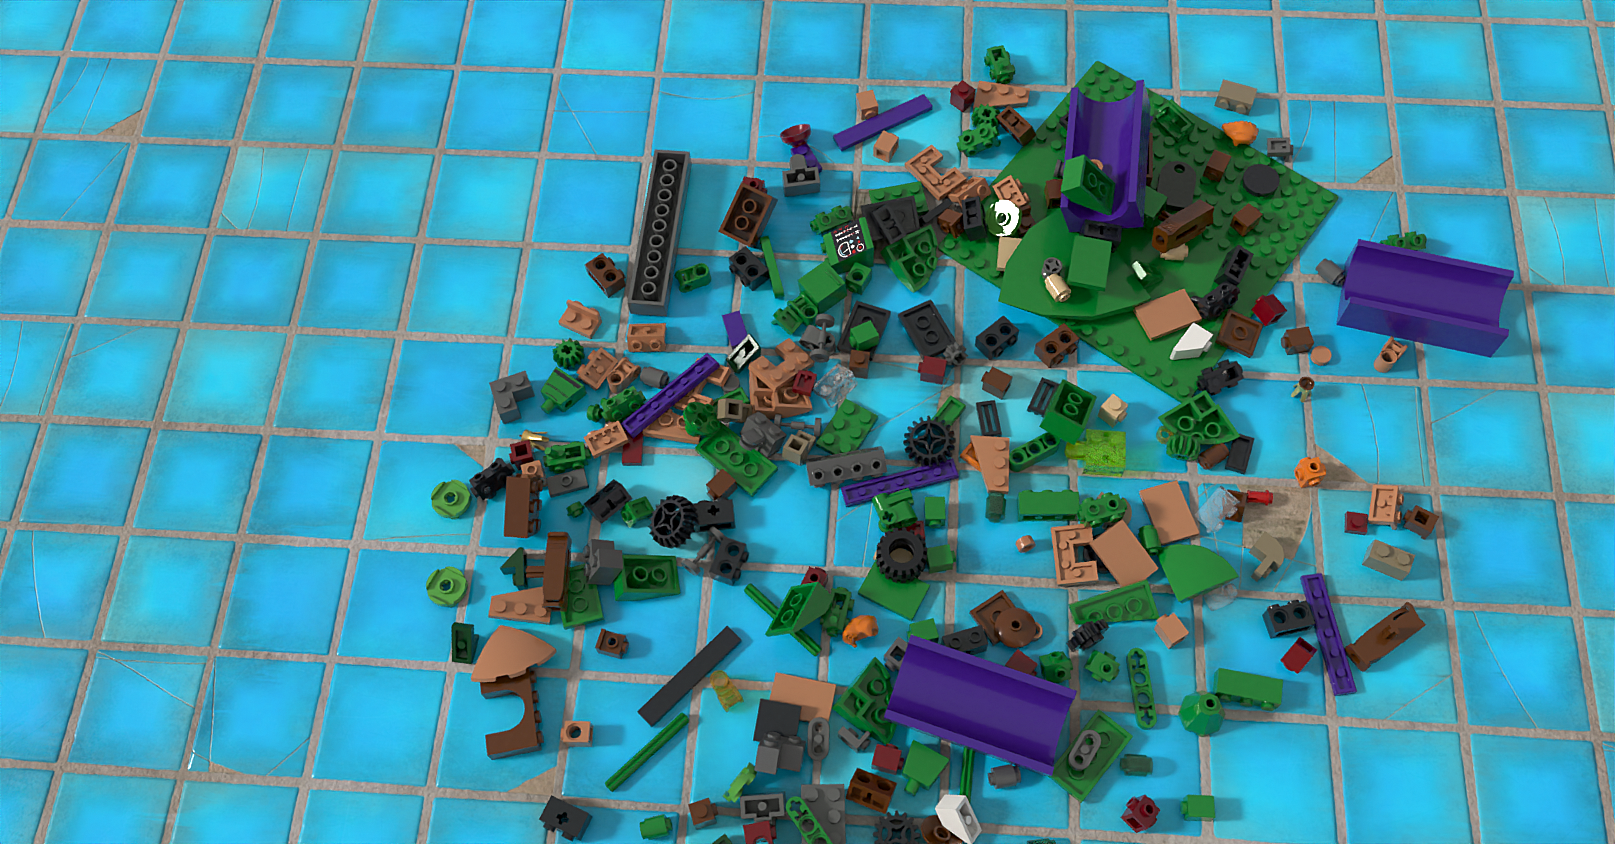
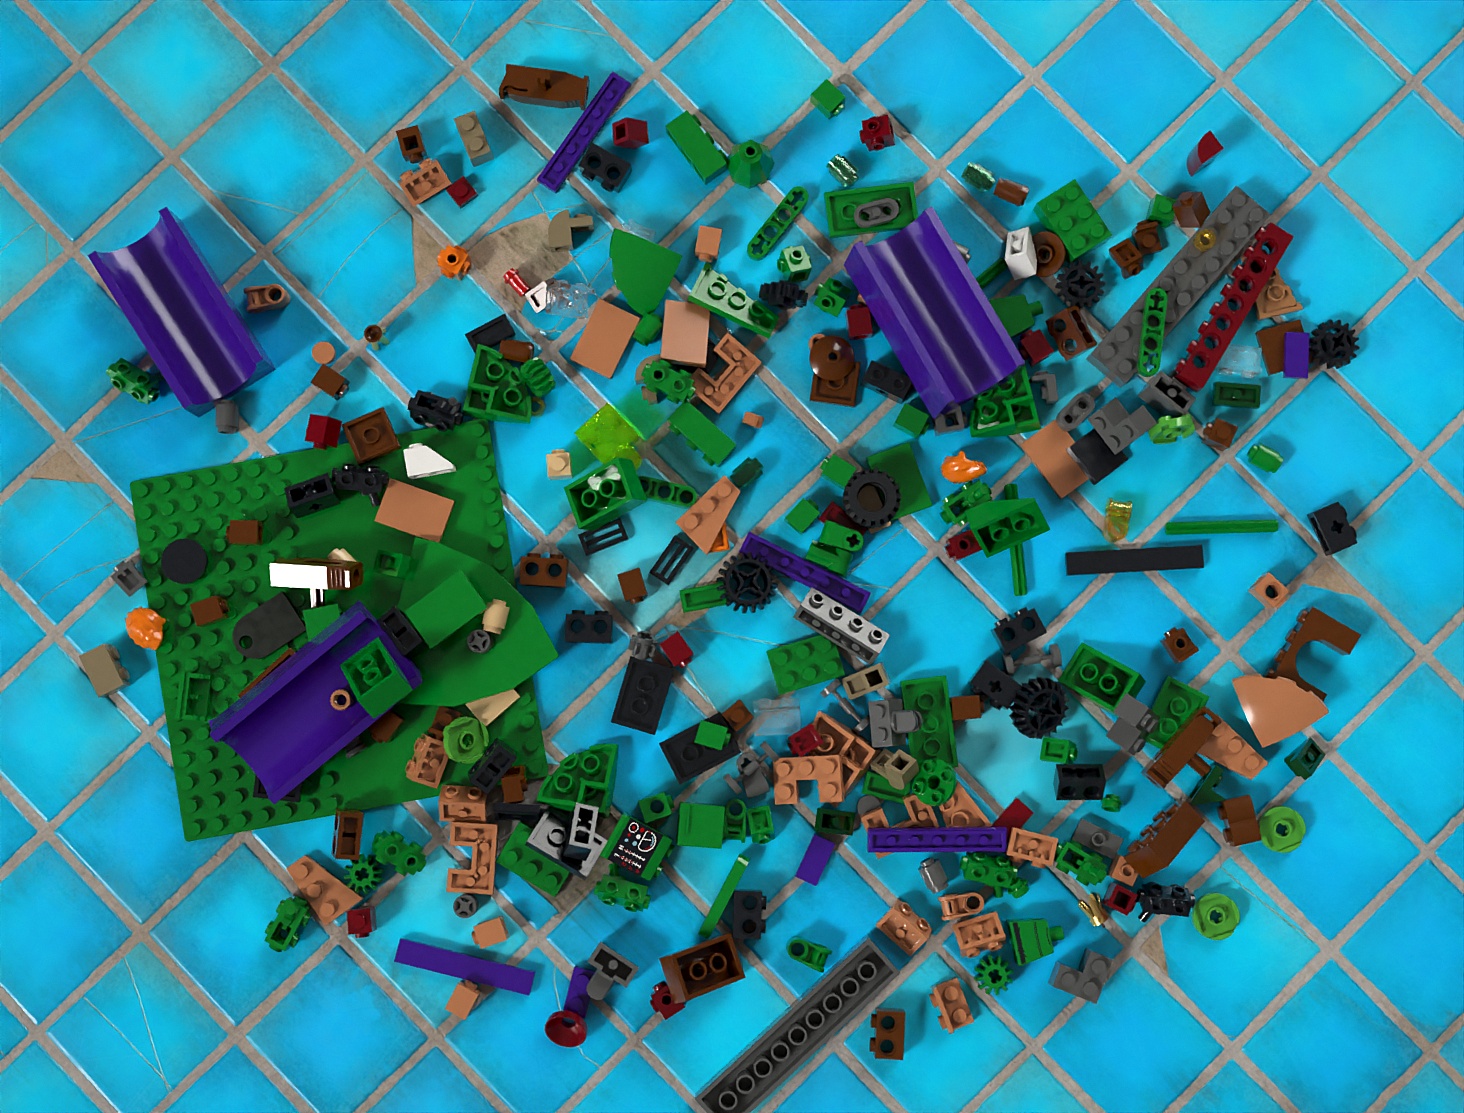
camera: 145 degrees left, 20 degrees up
(479, 567) = (1239, 820): none -> reddish brown brick
(913, 147) = (462, 908): none -> dark grey wheel

